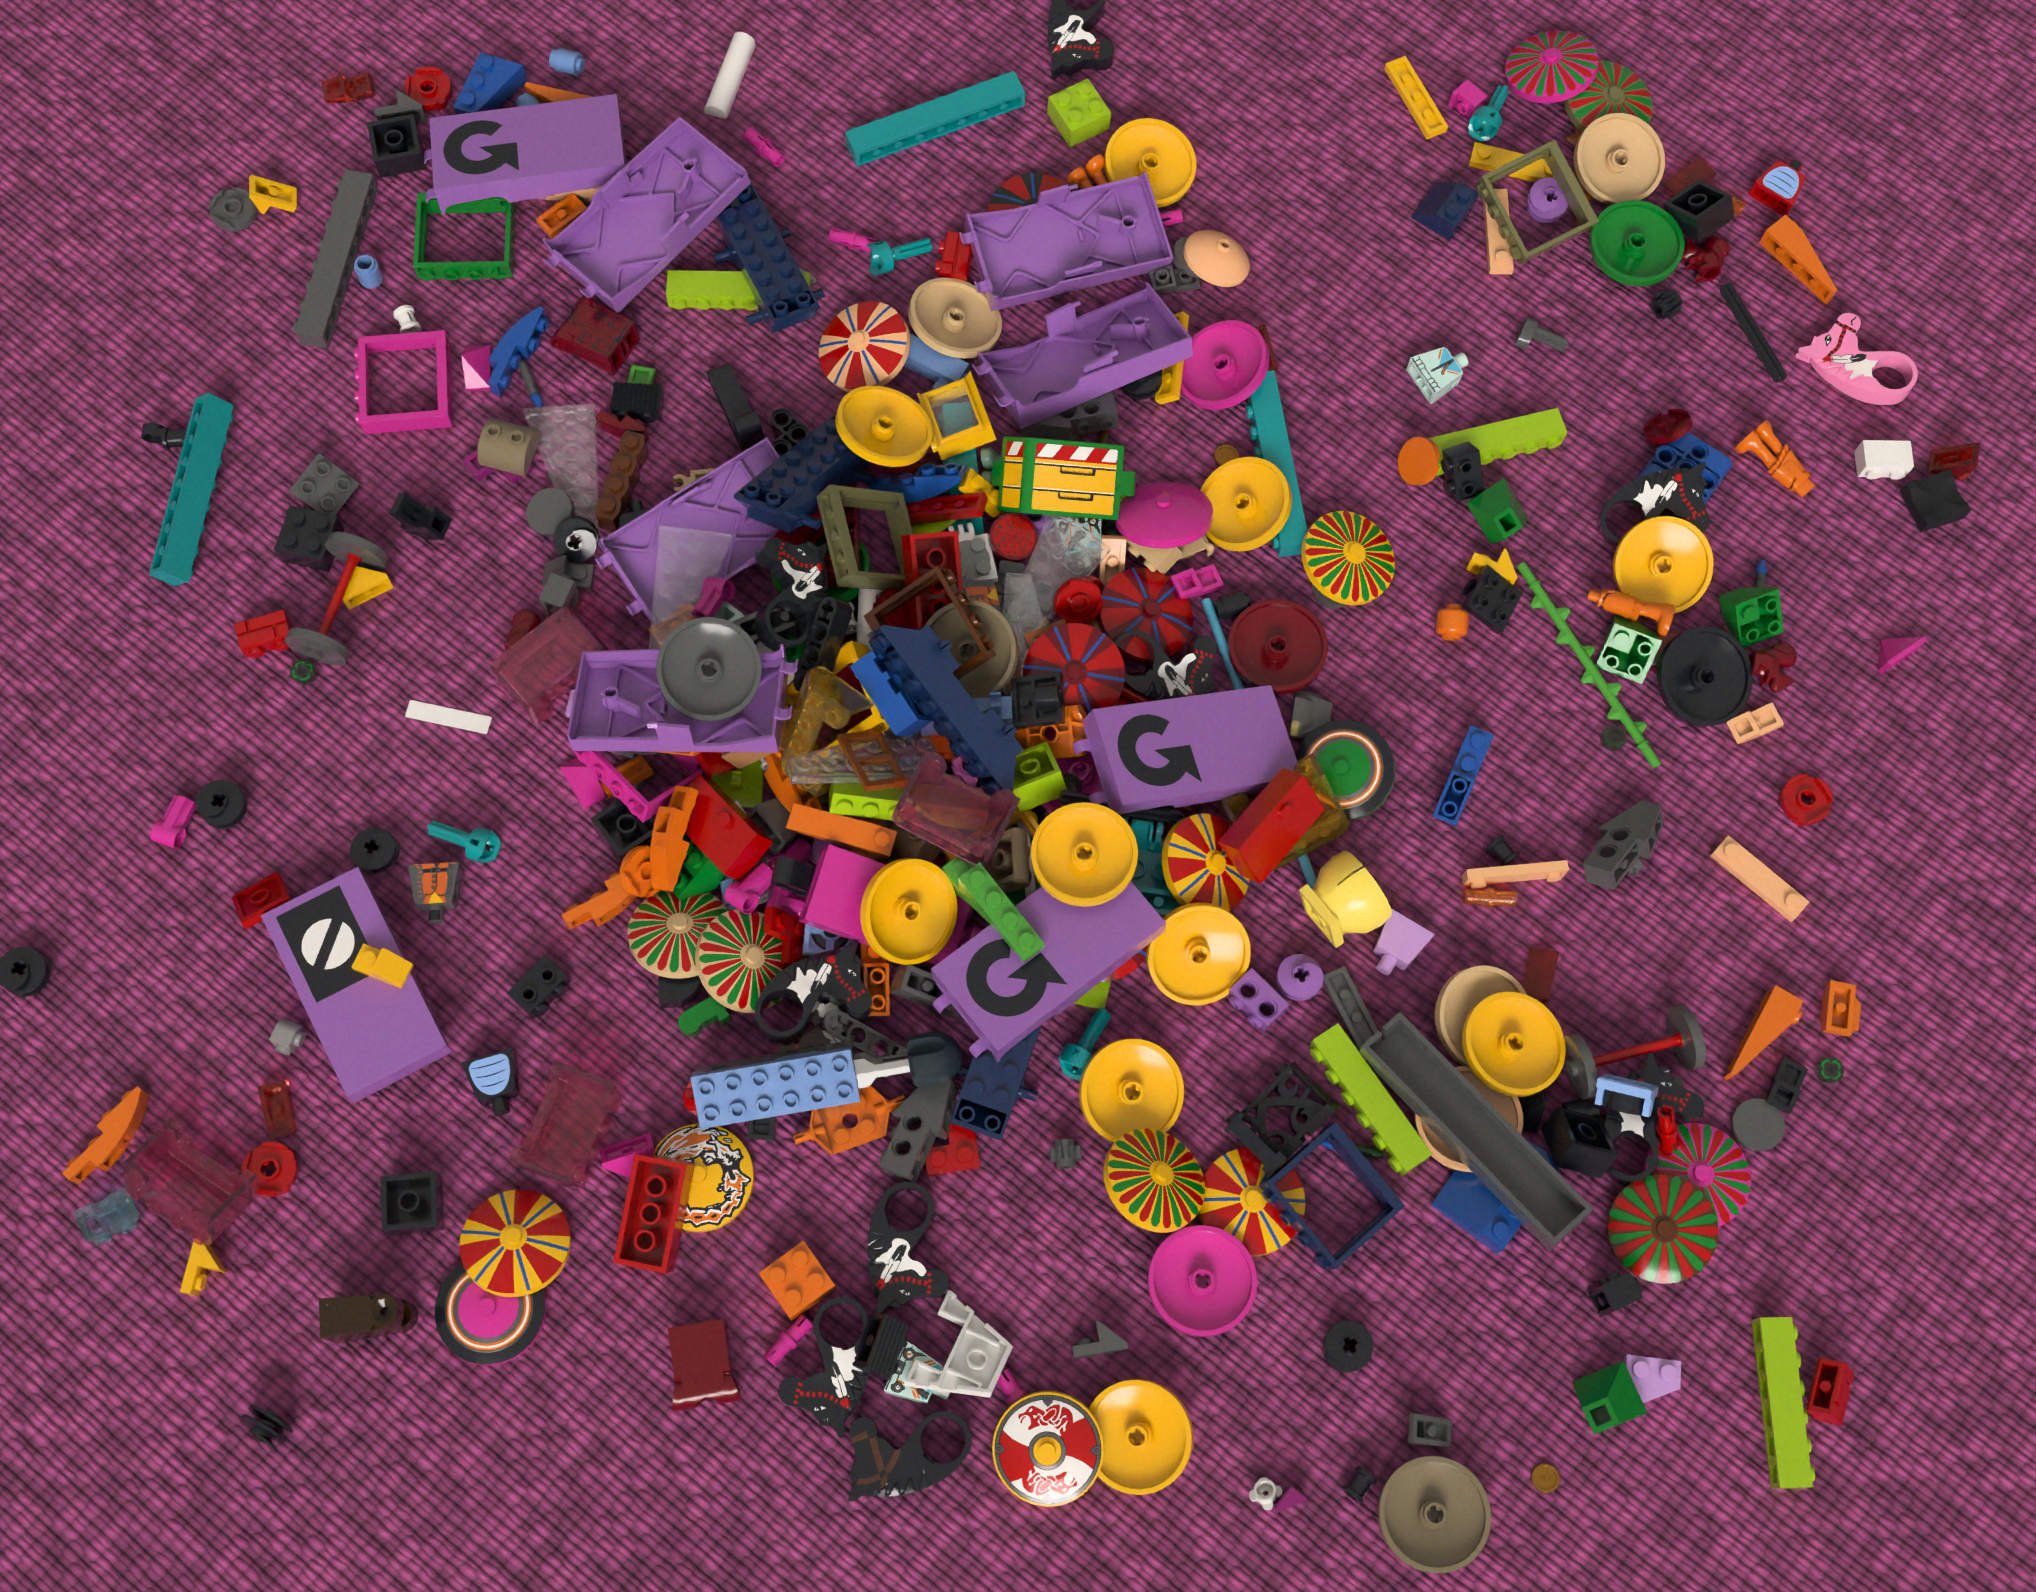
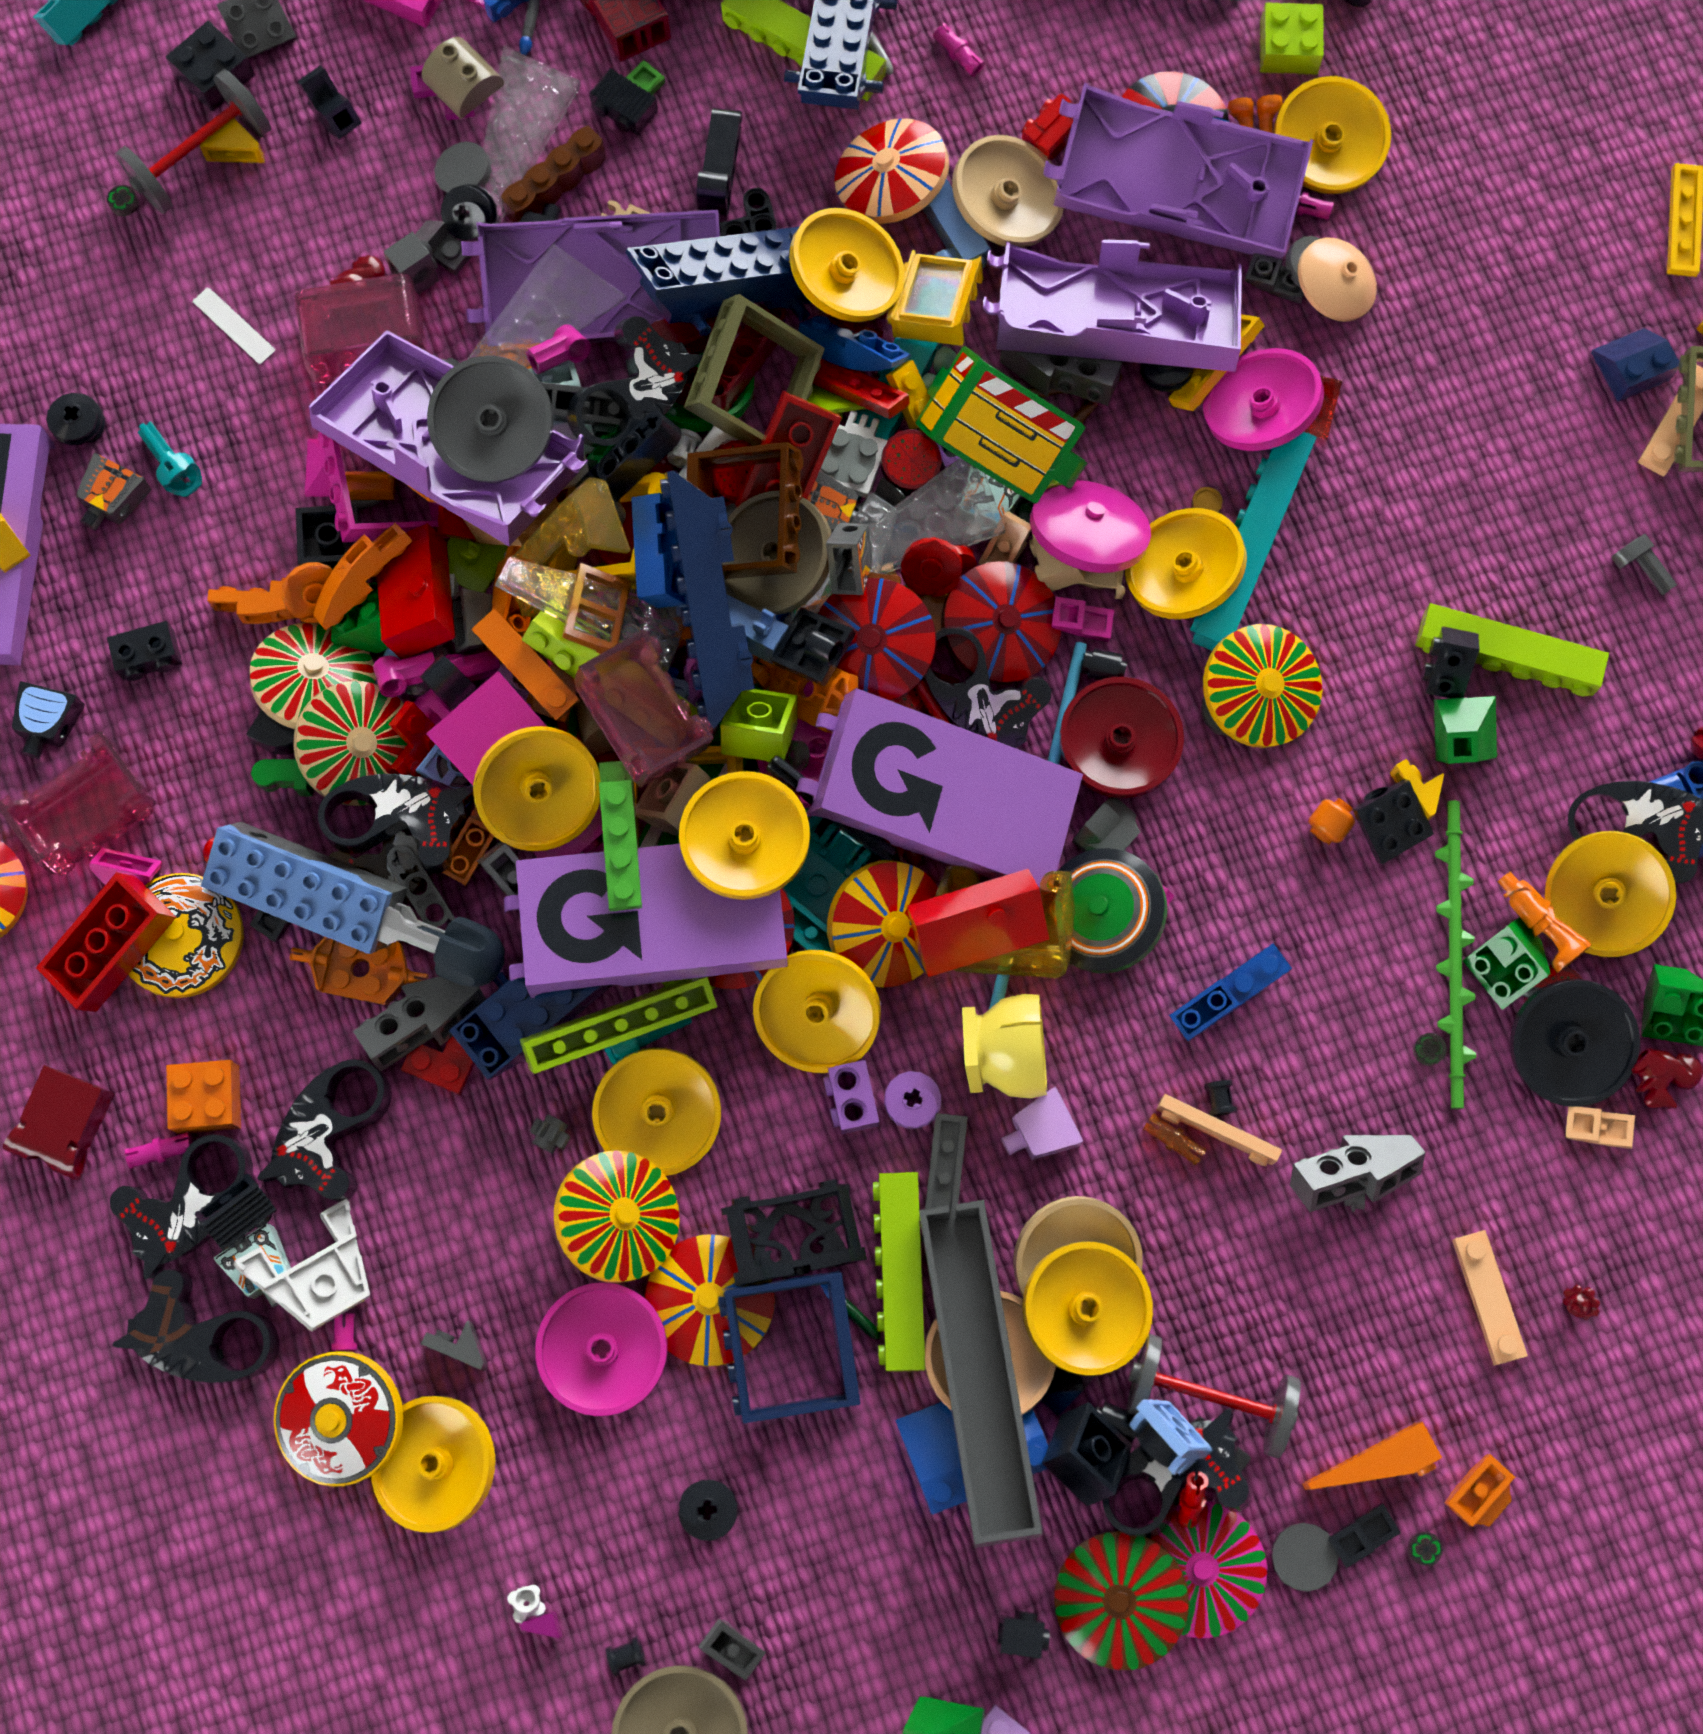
camera: 35 degrees right, 5 degrees up
(263, 633) = (103, 136): red brick -> none
(613, 425) = (586, 117): dark red slope -> none
(883, 256) = (977, 85): teal piece -> none
(1023, 617) = (847, 547): none -> dark grey torso
(1069, 1044) = (617, 1023): none -> lime brick
(1418, 461) = (1411, 624): orange tile -> none
(1436, 372) = (1501, 538): light aqua torso -> none
(1540, 973) = (1172, 1252): clear red slope -> none
(1802, 813) = (1587, 1257): red plate -> none
(1819, 845) = (1581, 1302): none -> dark red plant

